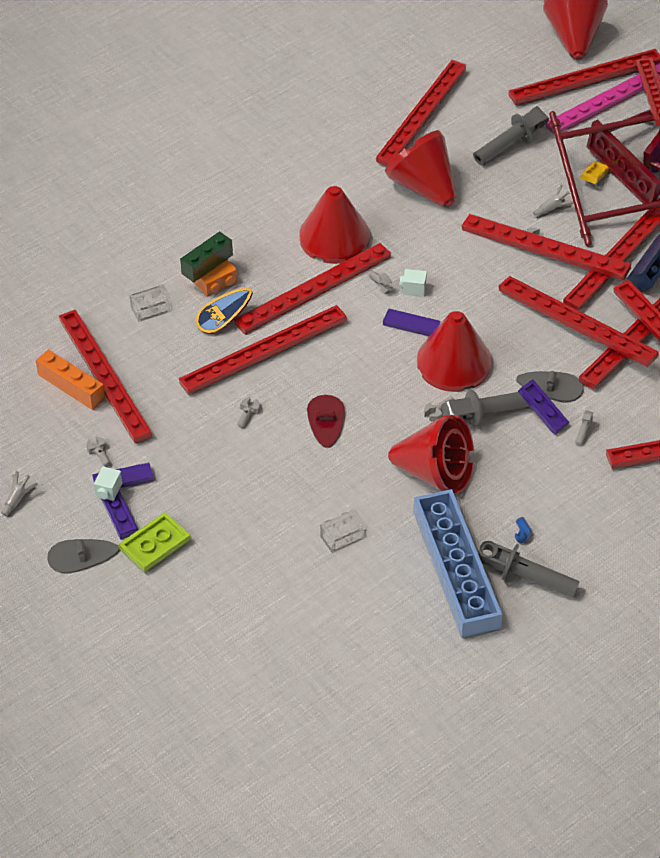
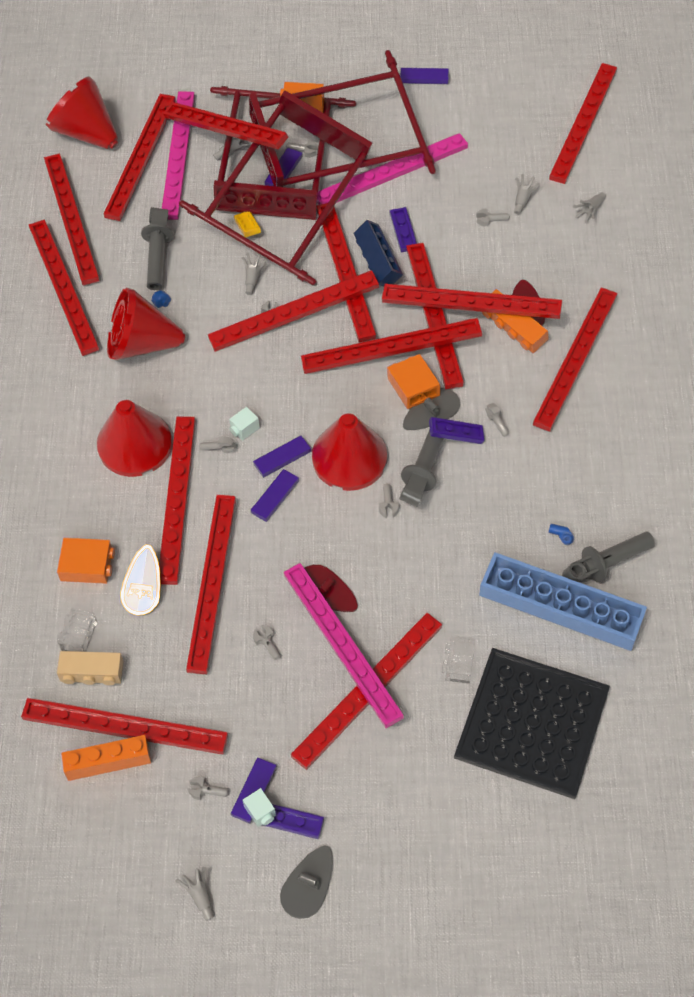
camera: 50 degrees left, 10 degrees up
(130, 327) = (90, 667): none -> tan brick
(154, 542) = (349, 813): lime plate -> none
(206, 256) = (80, 552): dark green brick -> none
(266, 493) = (355, 701): none -> red plate
(283, 452) = (343, 646): none -> dark pink plate
(336, 611) = (532, 723): none -> black tile
(373, 339) = (274, 495): none -> dark purple tile
(437, 454) = (447, 540): red cone -> none
(473, 171) = (161, 299): none -> blue piece
(484, 78) = (71, 219): none -> red plate
(561, 354) = (413, 381): none -> orange brick

